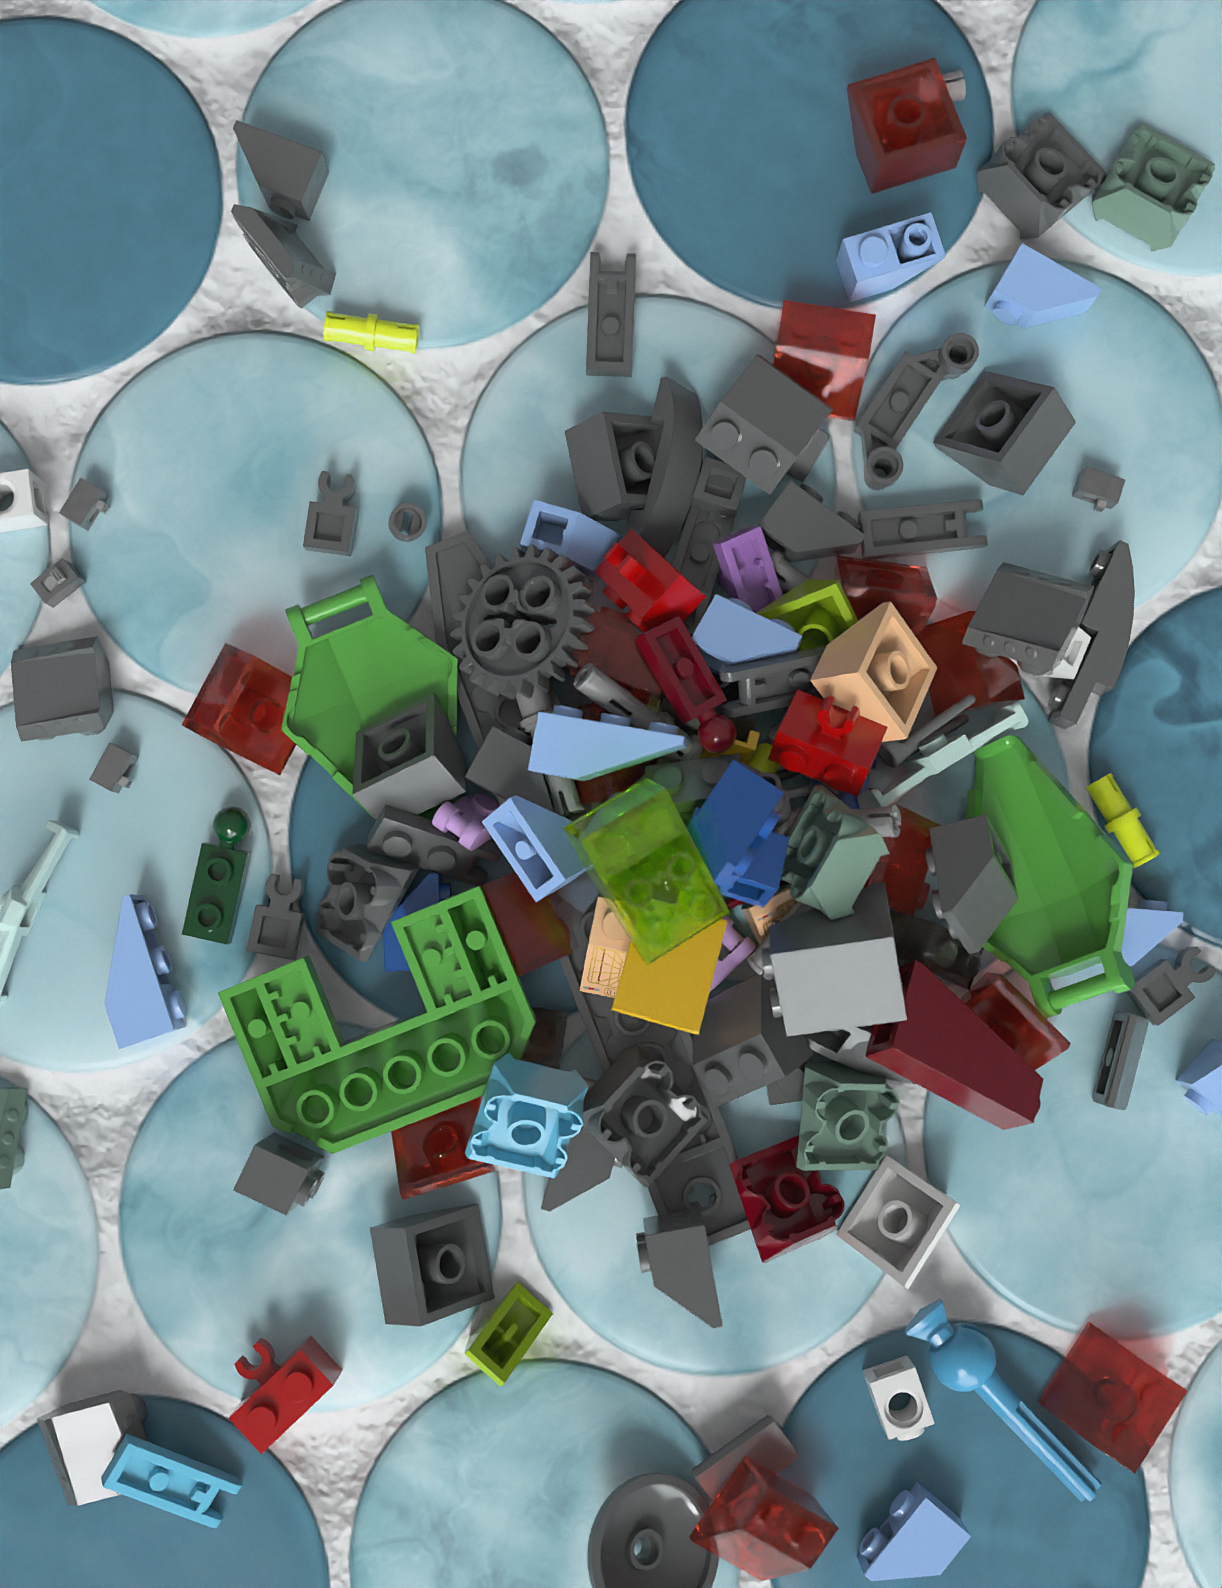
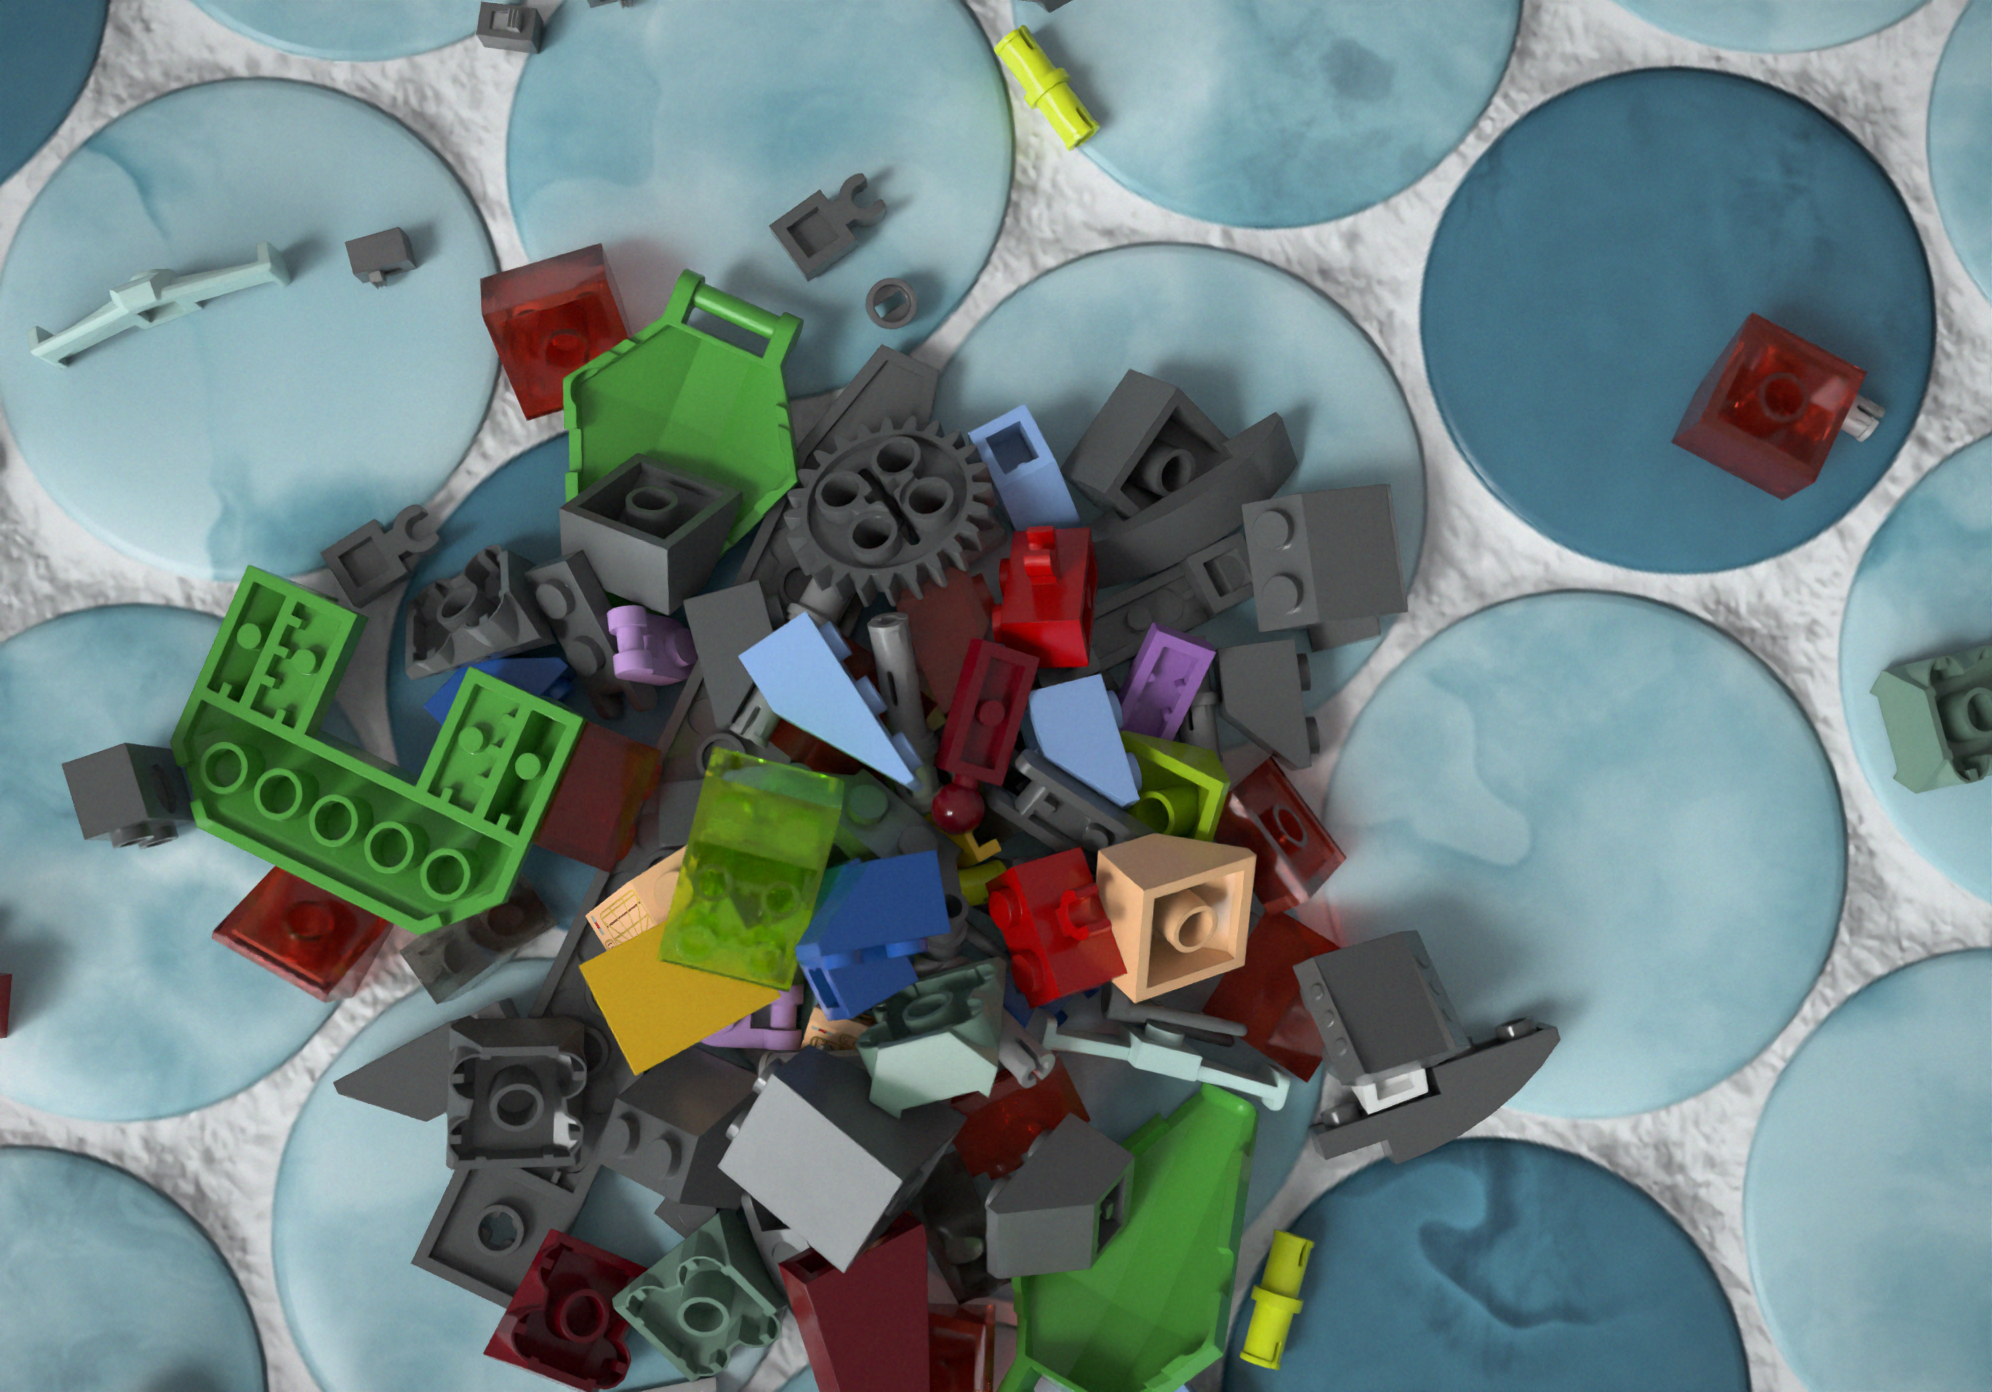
camera: 50 degrees right, 0 degrees up
(61, 689) = (409, 132): dark grey slope -> none
(139, 987) = (188, 486): light blue slope -> none
(219, 880) = (367, 461): dark green plate -> none
(431, 1265) = (183, 1027): dark grey slope -> none
(507, 1333) = (182, 1166): lime slope -> none
(527, 1117) = (404, 983): medium azure slope -> none
(535, 845) = (675, 734): light blue slope -> none
(610, 319) = (1289, 305): dark grey hinge -> none
(680, 1262) = (400, 1274): dark grey slope -> none
(825, 352) = (1458, 550): clear red slope -> none
(888, 256) = (1622, 519): light blue slope -> none
(902, 401) = (1490, 673): dark grey plate -> none
(919, 530) = (1373, 813): dark grey hinge -> none
(1006, 430) = (1559, 806): dark grey slope -> none
(1039, 176) = (1856, 592): dark grey slope -> none
(1039, 291) = (1735, 703): light blue slope -> none
(1098, 488) = (1594, 955): flat silver piece -> none

